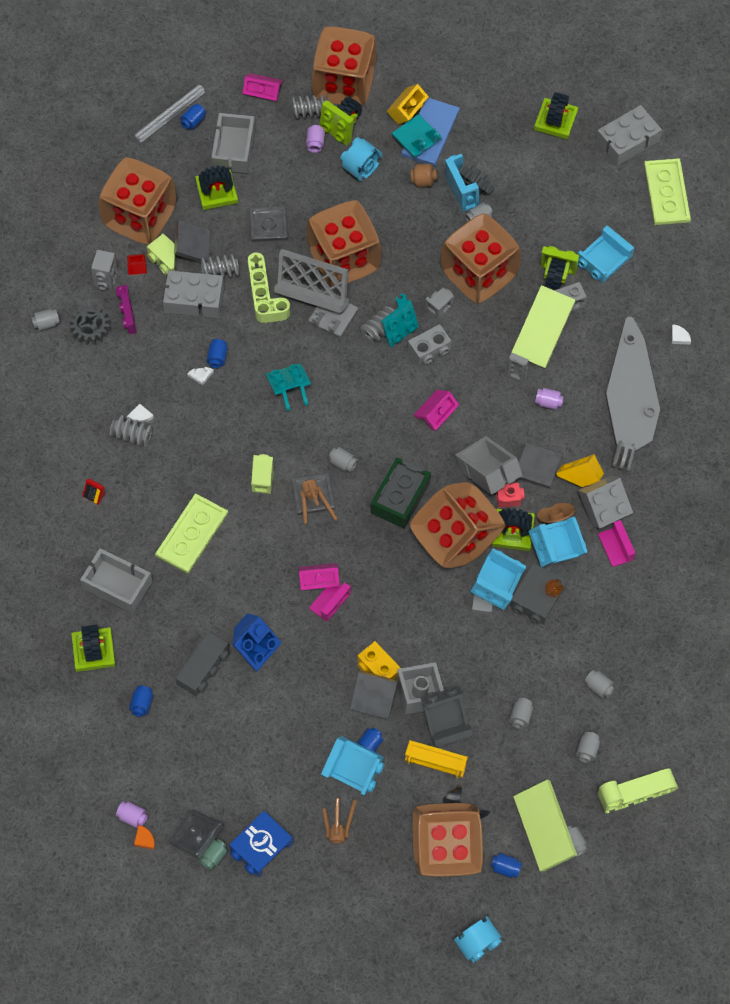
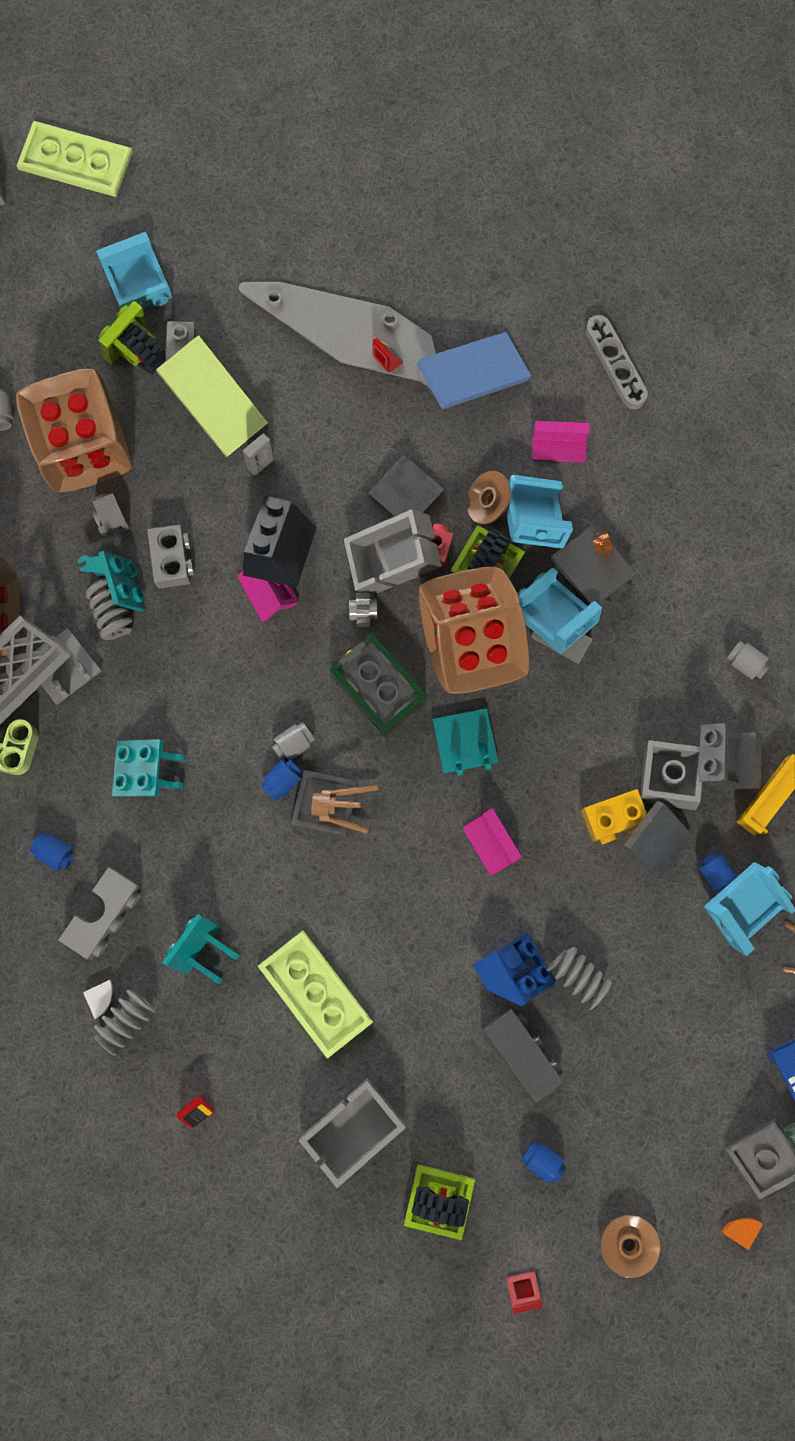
camera: 70 degrees left, 15 degrees up
(56, 720) = (524, 1292): none -> red slope
(105, 761) = (641, 1257): none -> medium nougat dish
(131, 814) = (706, 1237): lavender brick -> none
(192, 448) = (196, 935): none -> teal plate
(200, 375) = (73, 887): white tile -> none
(205, 398) = (118, 895): none -> light grey arch
(262, 473) = (273, 861): yellowish green slope -> none
(265, 679) = (580, 976): none -> light grey piece
(317, 462) = (282, 779): none -> blue brick
(319, 576) = (452, 843): dark pink panel -> none
(389, 560) = (465, 741): none -> teal plate
(446, 467) = (363, 609): none -> light grey gear
(465, 399) = (278, 543): none -> black slope
(549, 398) = (317, 436): lavender brick -> none
(582, 471) = (443, 440): yellow slope -> none
(599, 683) = (745, 546): light grey brick -> none
(605, 501) = (502, 427): light grey brick -> none
(623, 416) = (385, 355): none -> red slope
(638, 471) = (473, 370): none -> medium blue tile
(680, 335) = (294, 236): white tile -> none
(691, 560) = (621, 360): none -> light grey beam

